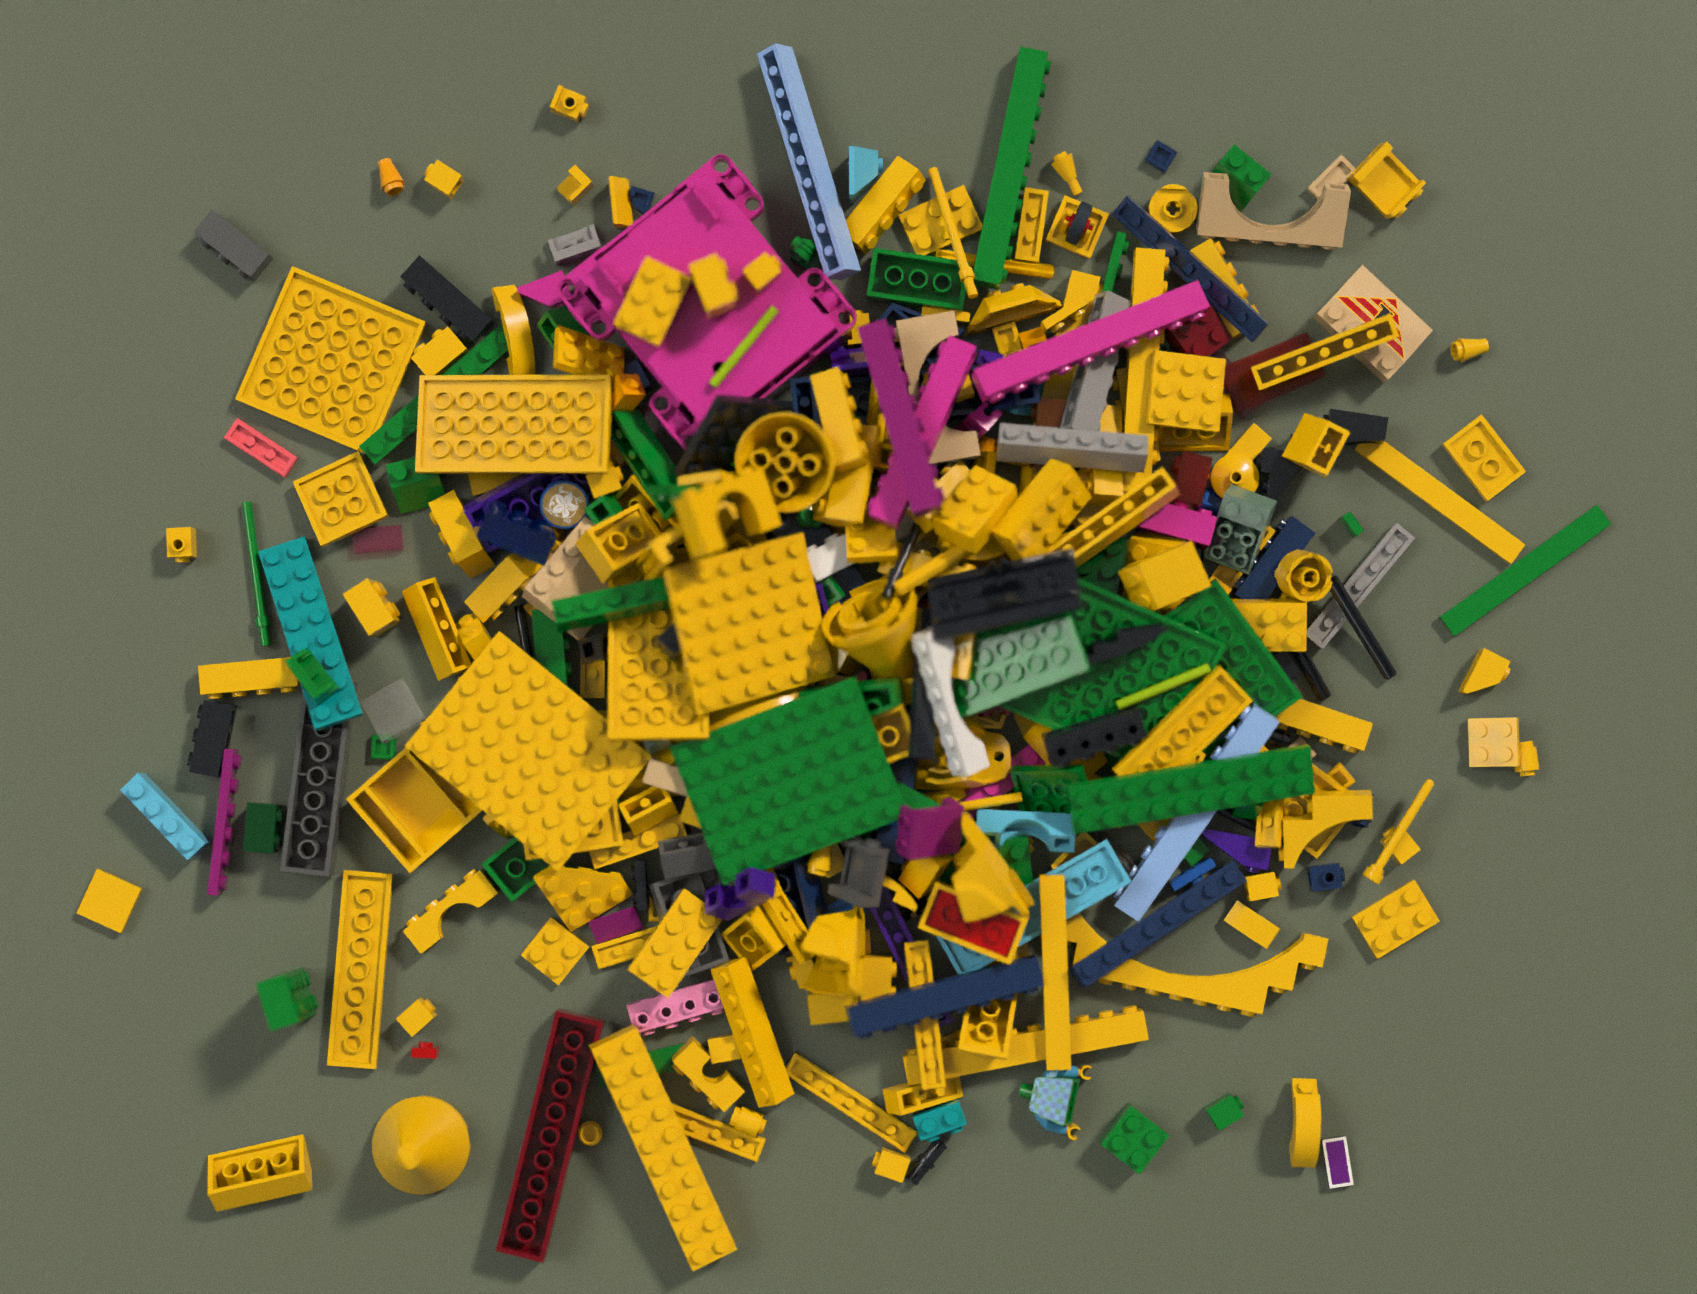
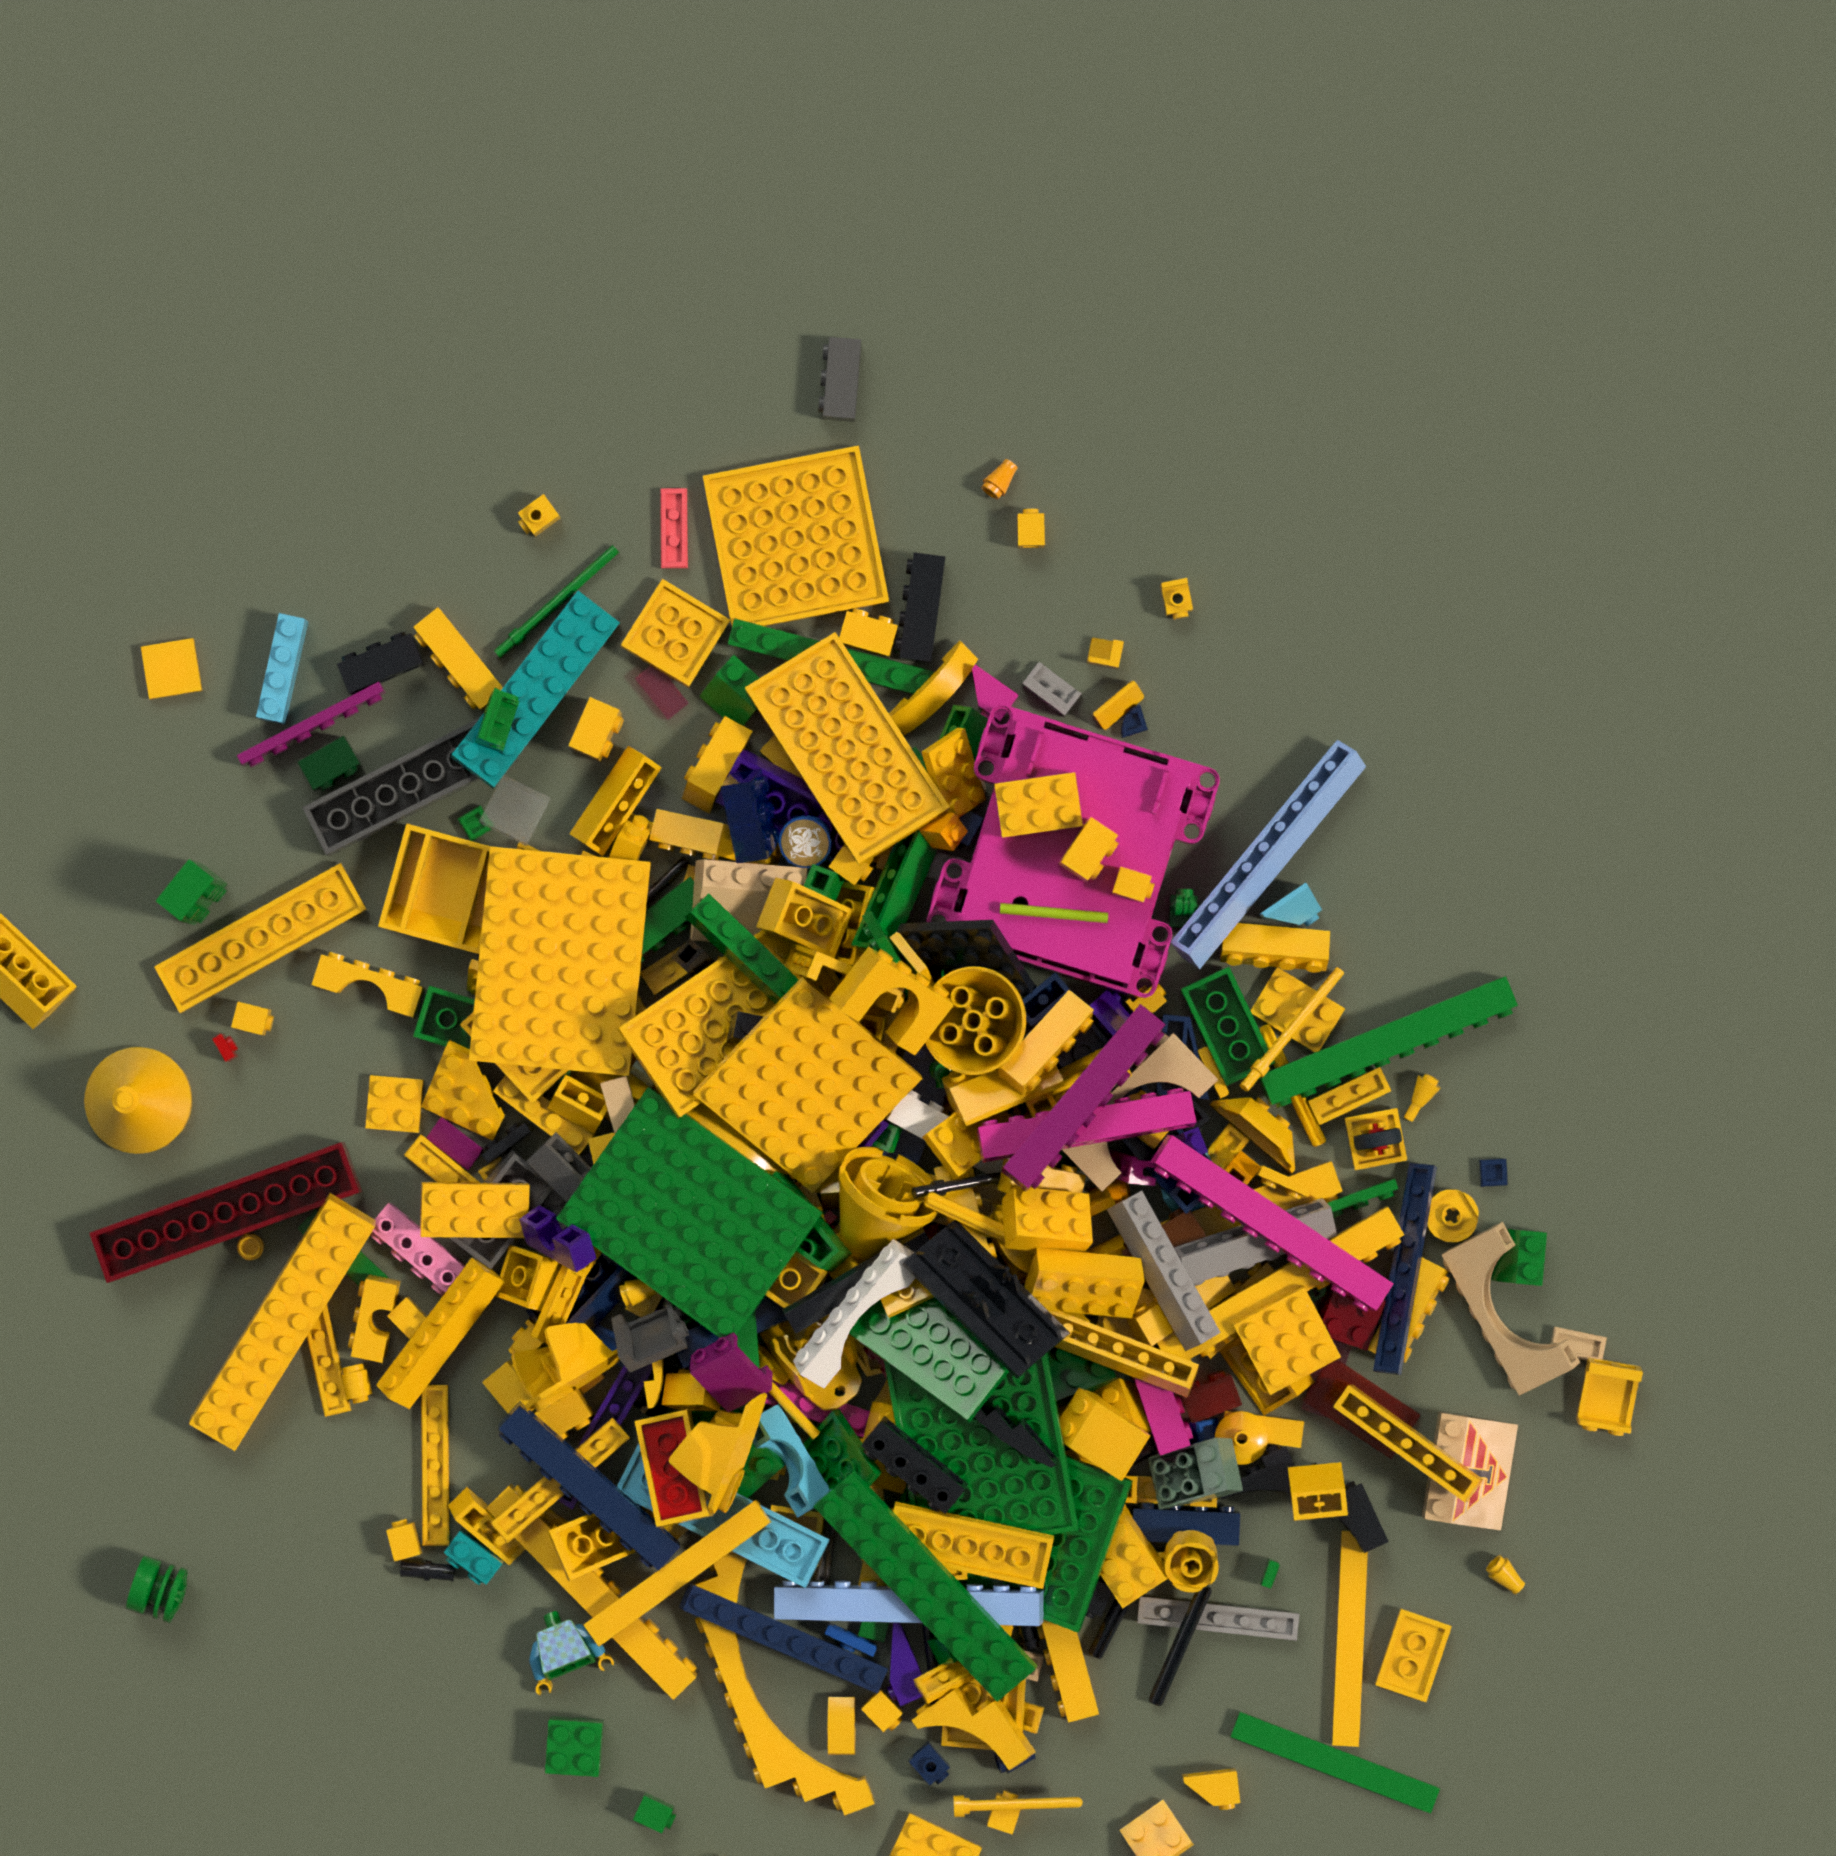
camera: 60 degrees right, 0 degrees up
(1163, 686) = (1001, 1498): lime bar -> none

